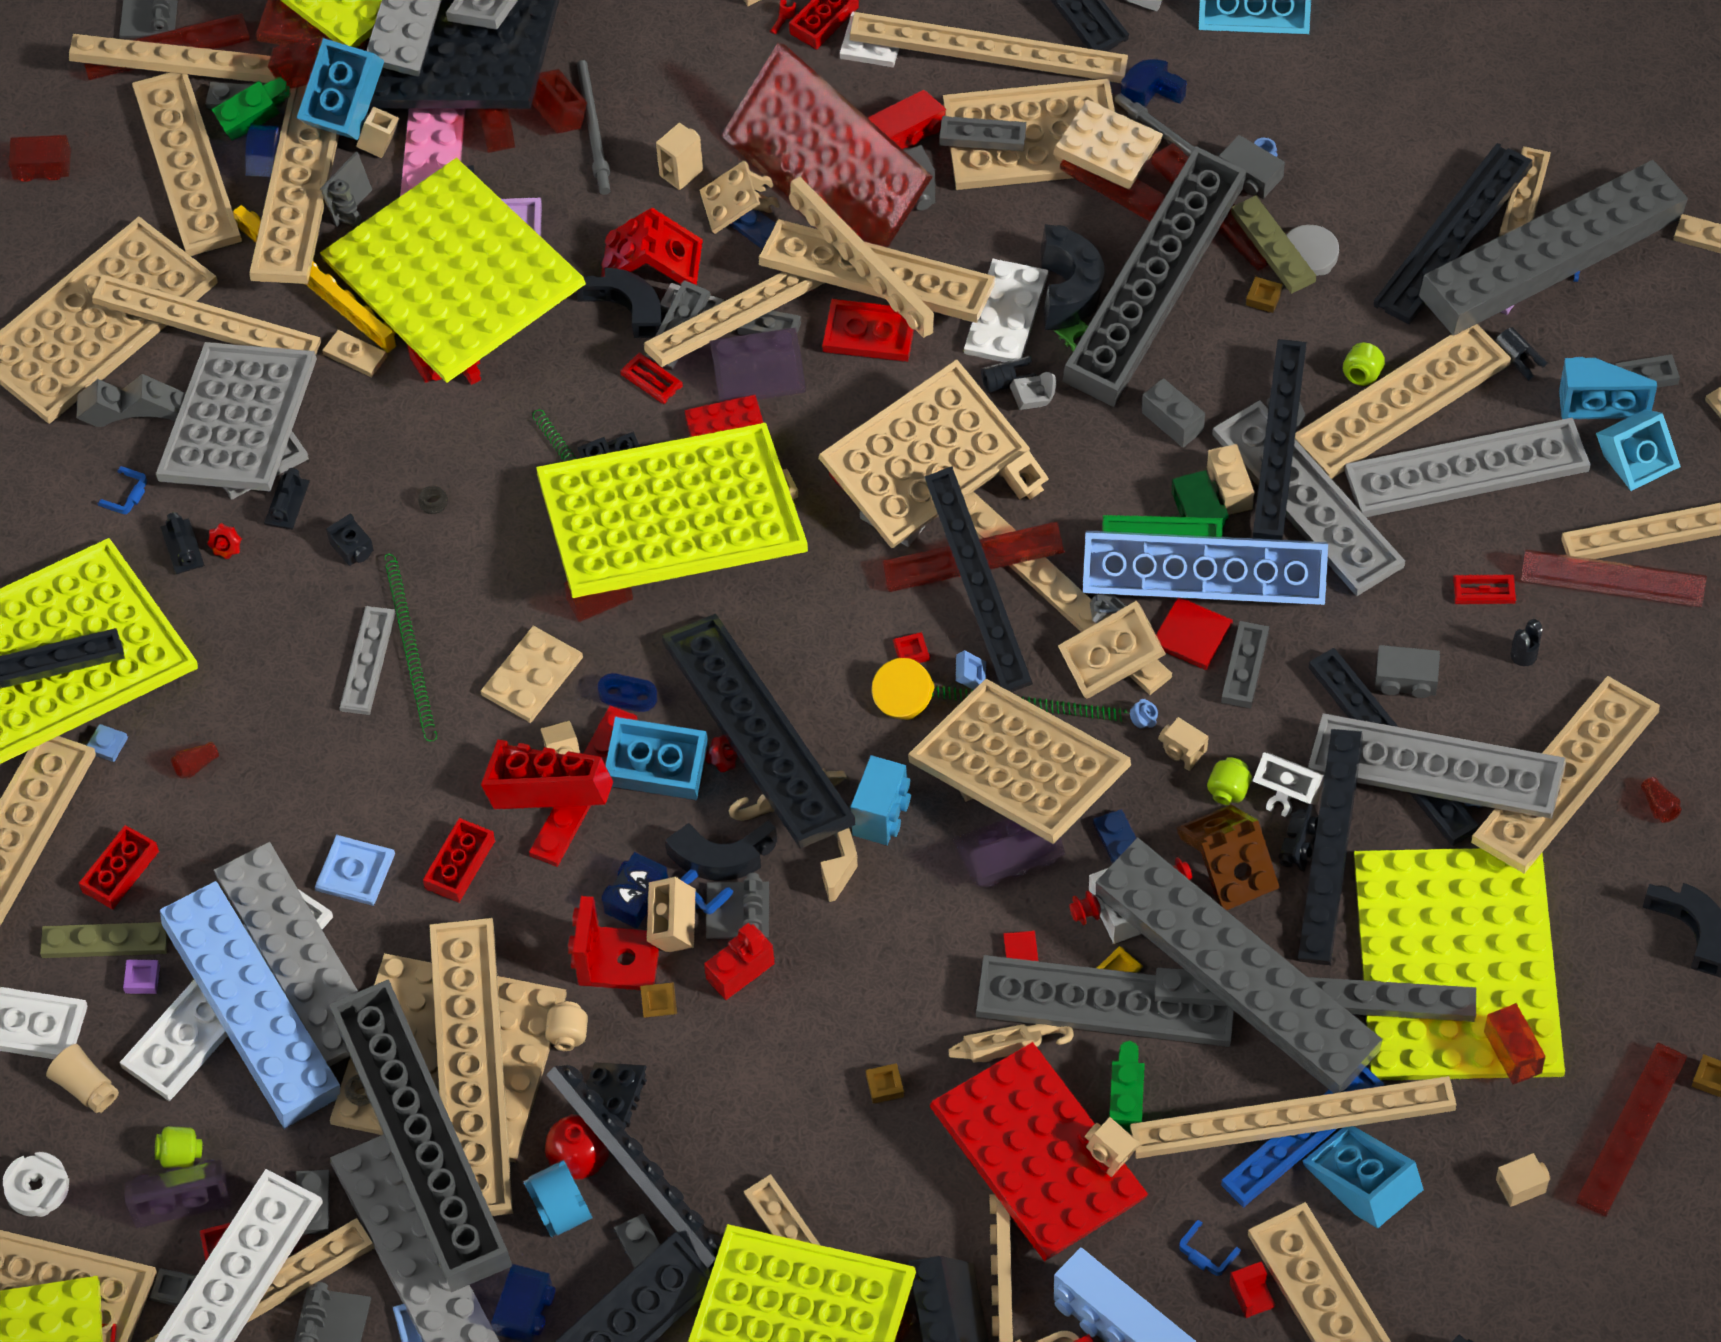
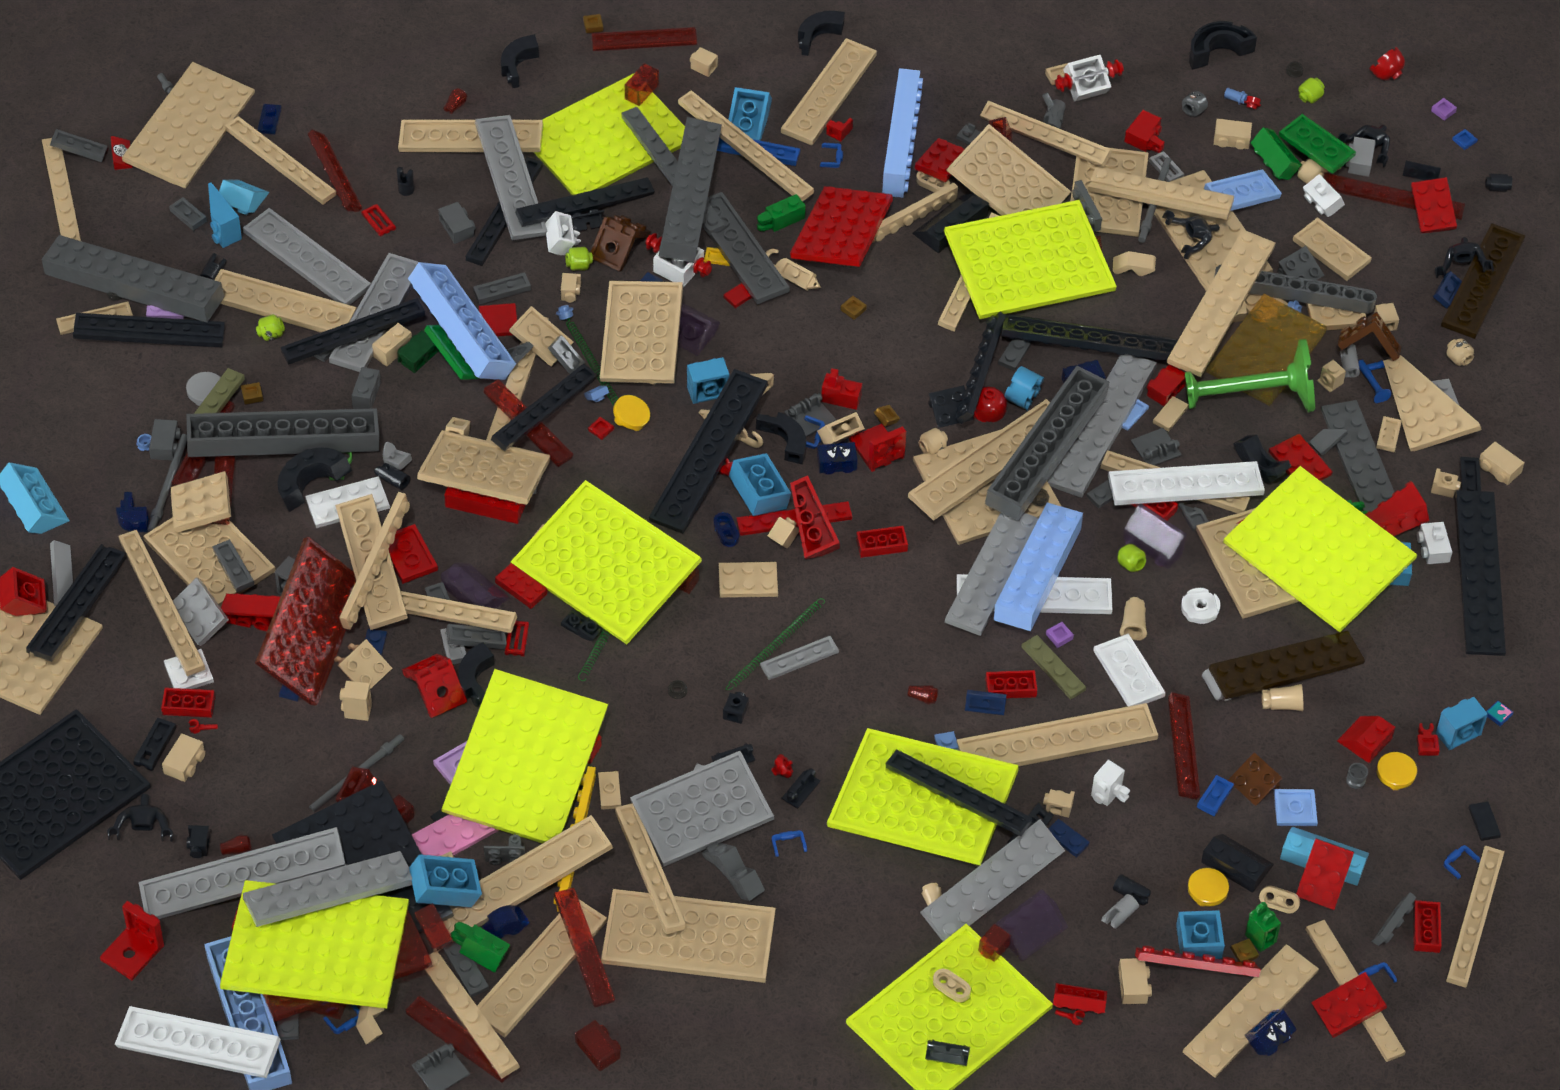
camera: 130 degrees left, 5 degrees down
(109, 827) = (985, 702): none -> dark blue plate
(162, 200) = (584, 947): none -> clear red plate
(354, 870) = (923, 585): light blue tile -> none
(944, 76) = (199, 611): none -> light grey plate
(1057, 663) = (565, 354): none -> dark grey plate
(1110, 1145) = (820, 195): tan brick -> none

